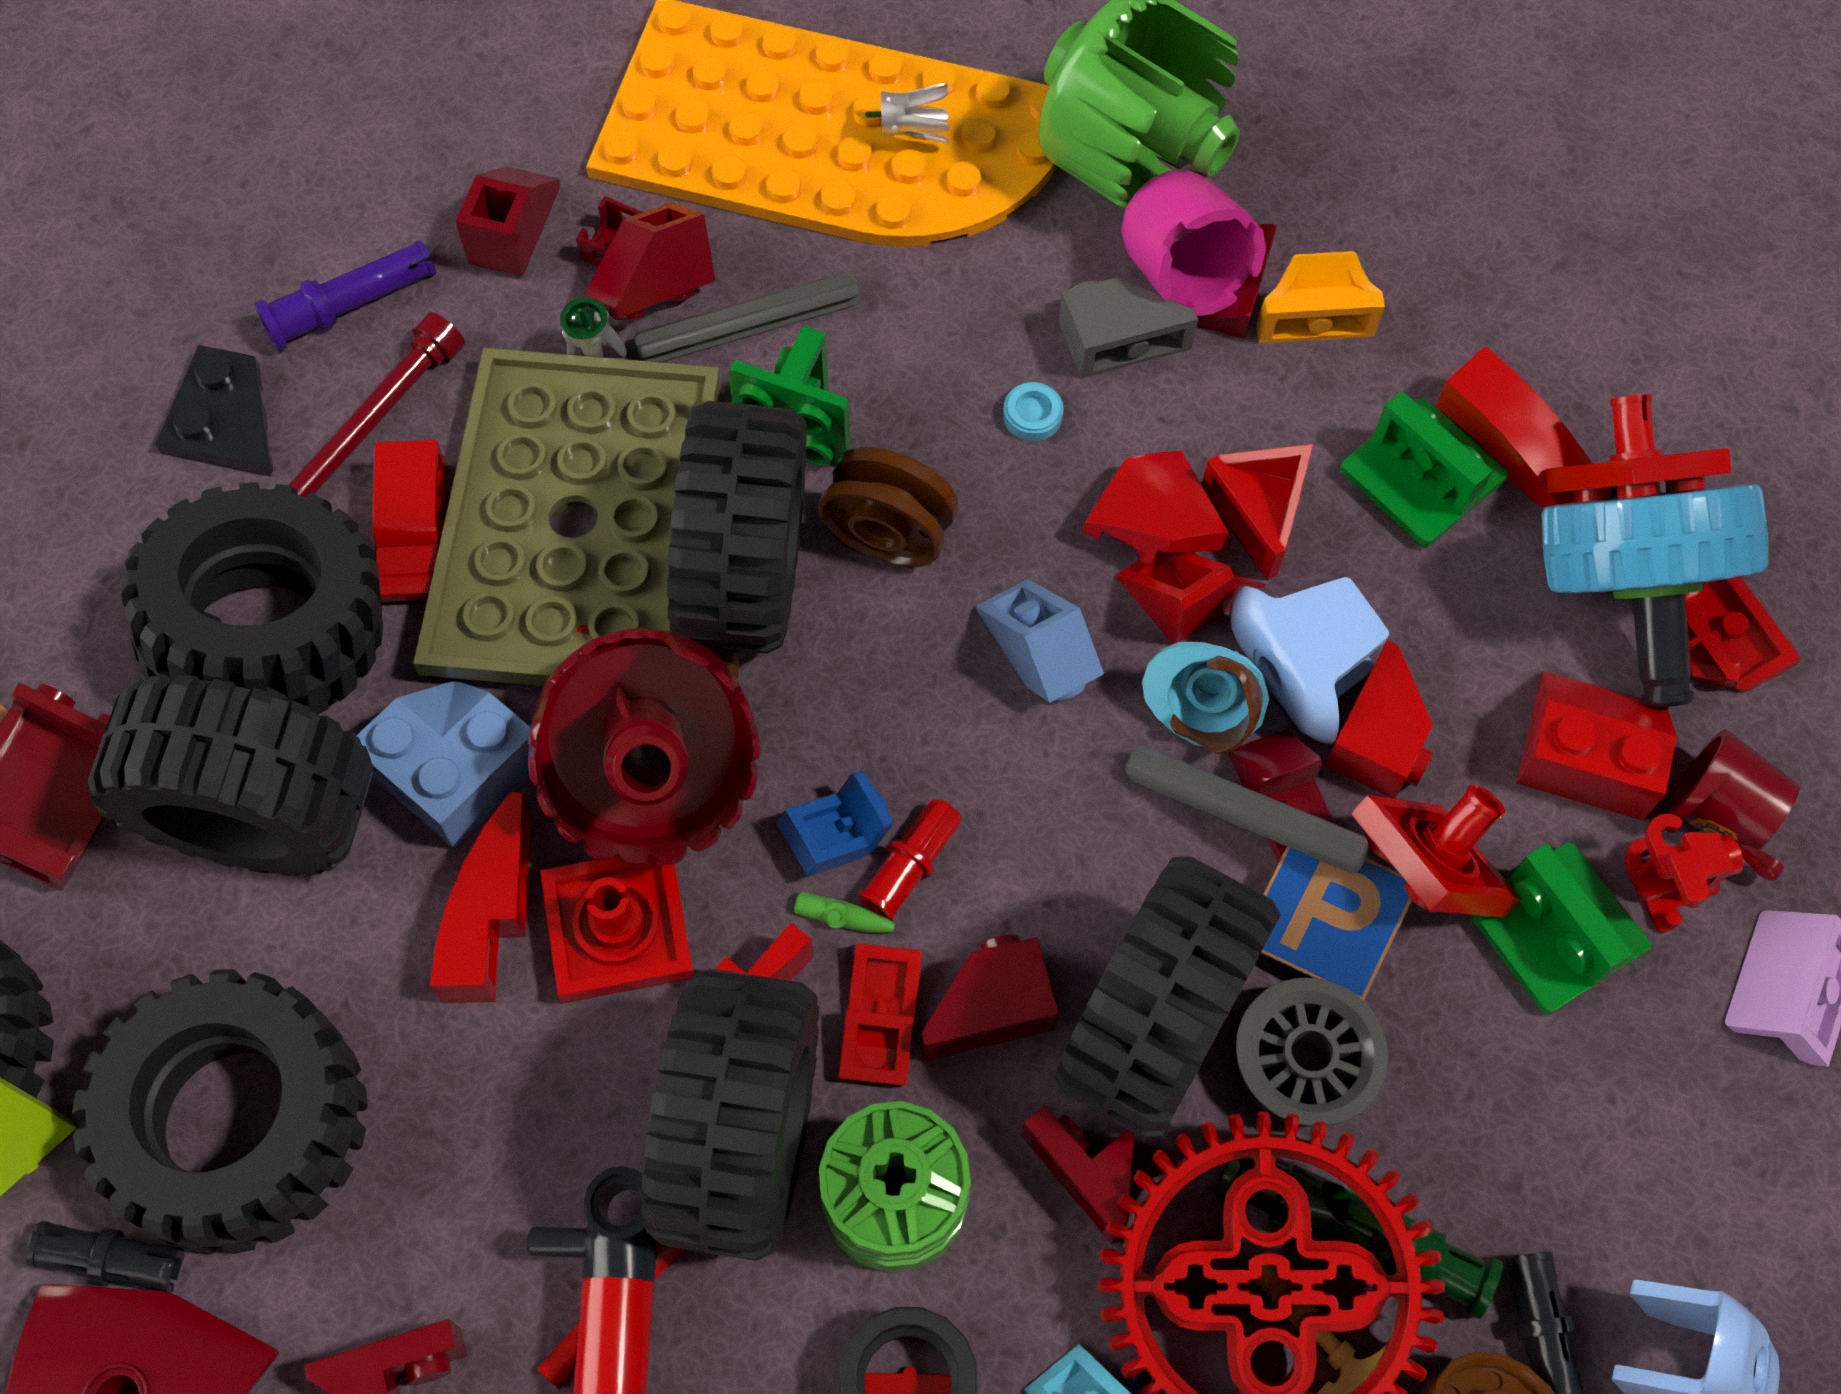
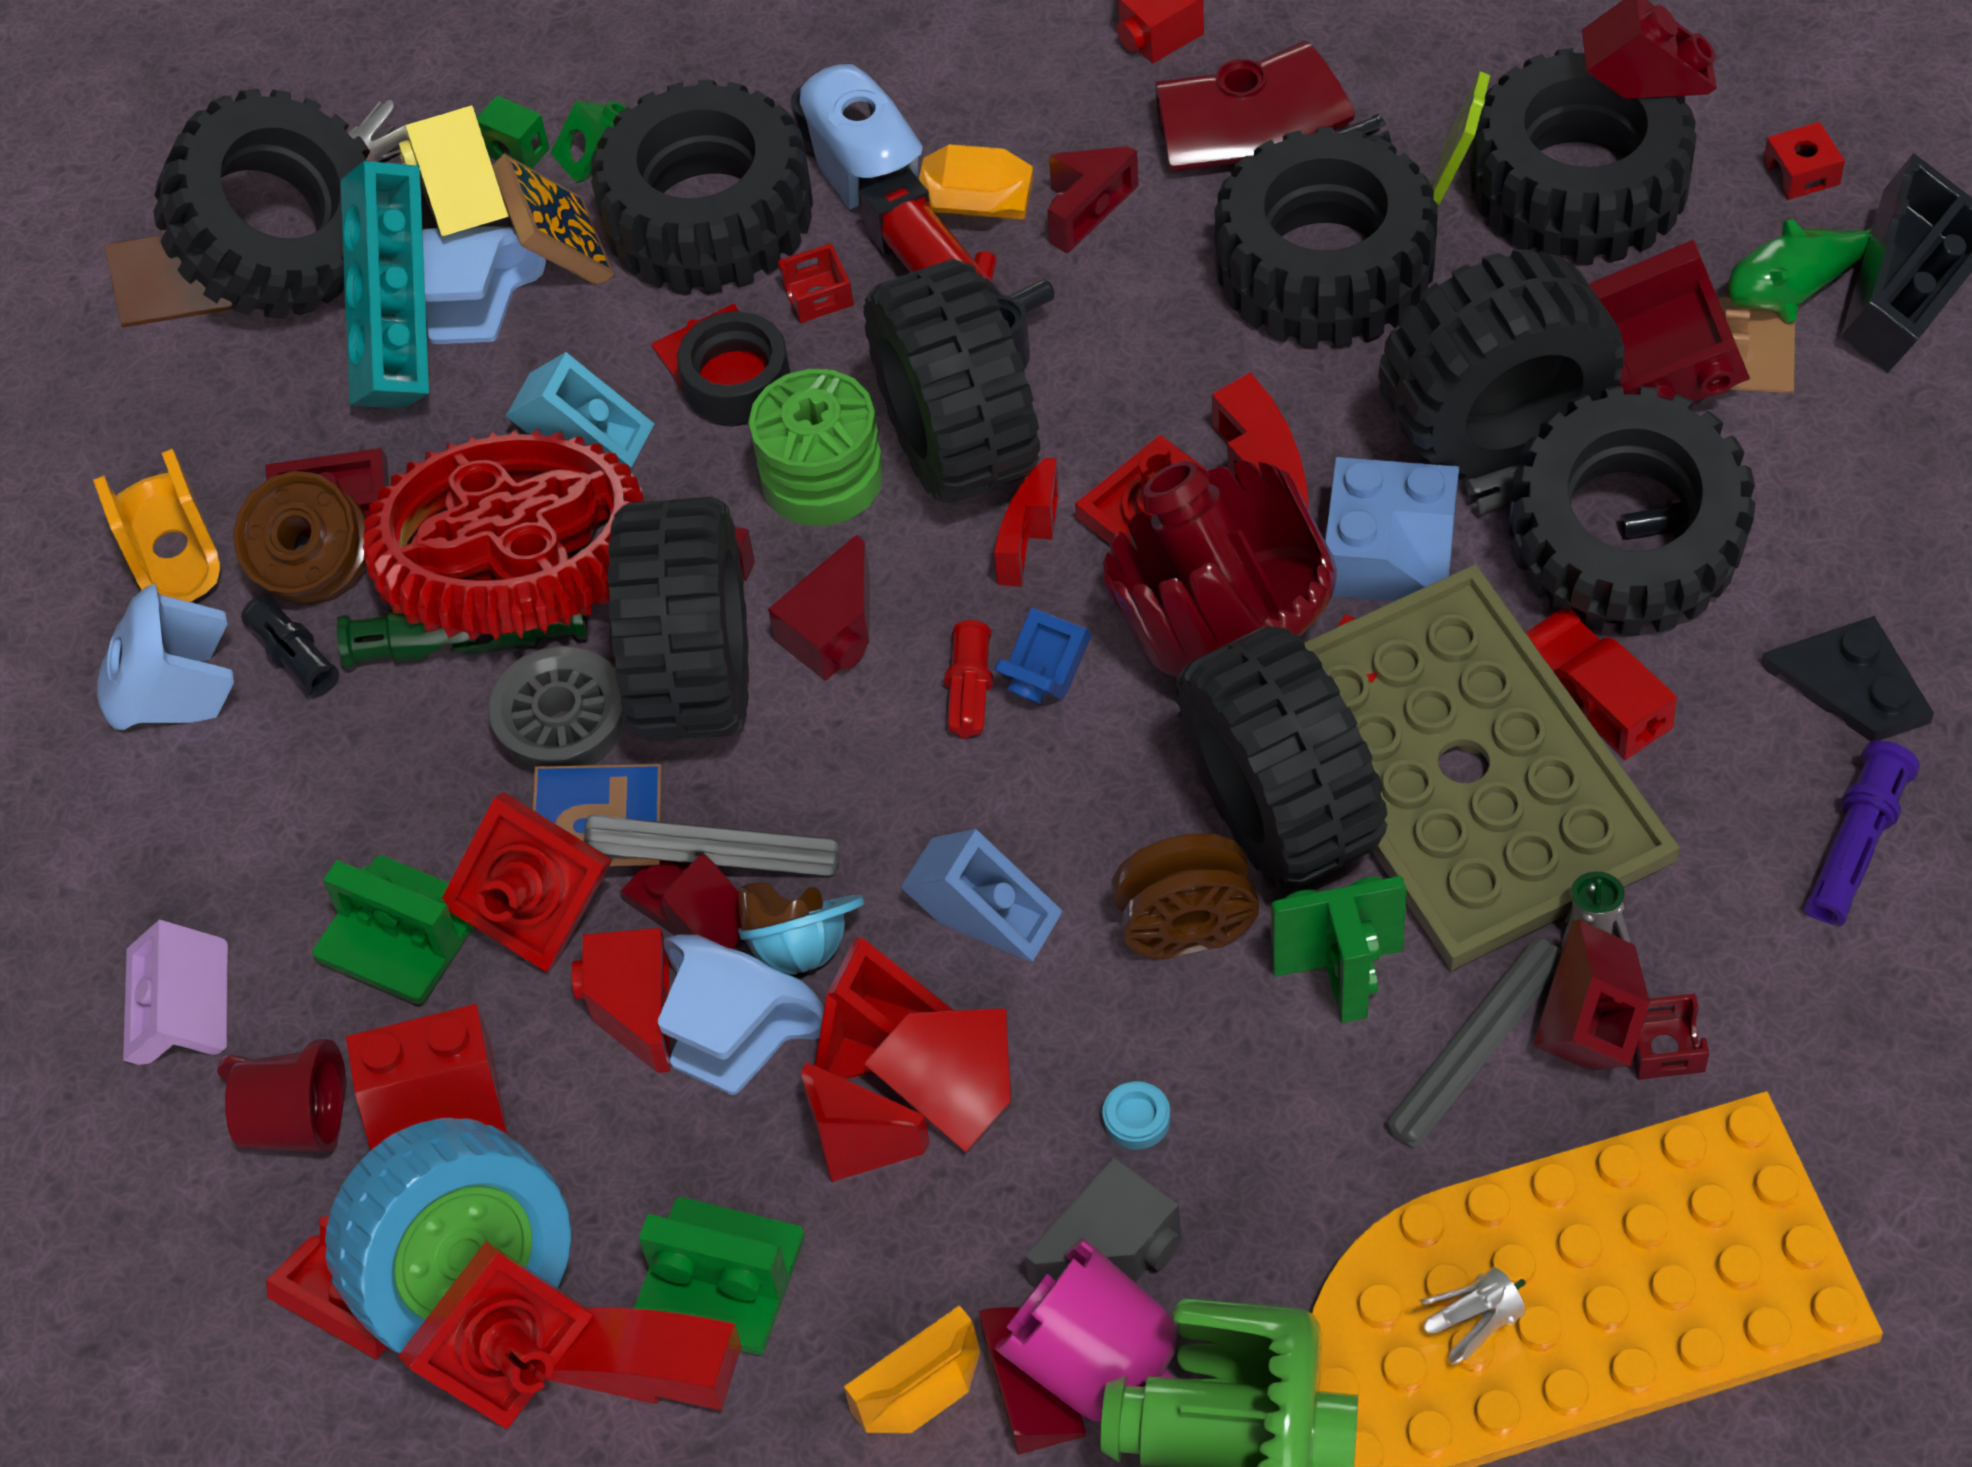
camera: 155 degrees right, 10 degrees down
(433, 343) = (1733, 831): dark red piece -> none
(505, 217) = (1784, 981): dark red slope -> none
(841, 914) = (1000, 615): bright green helmet -> none
(881, 1014) = (914, 571): red slope -> none
(1679, 873) = (306, 999): red piece -> none

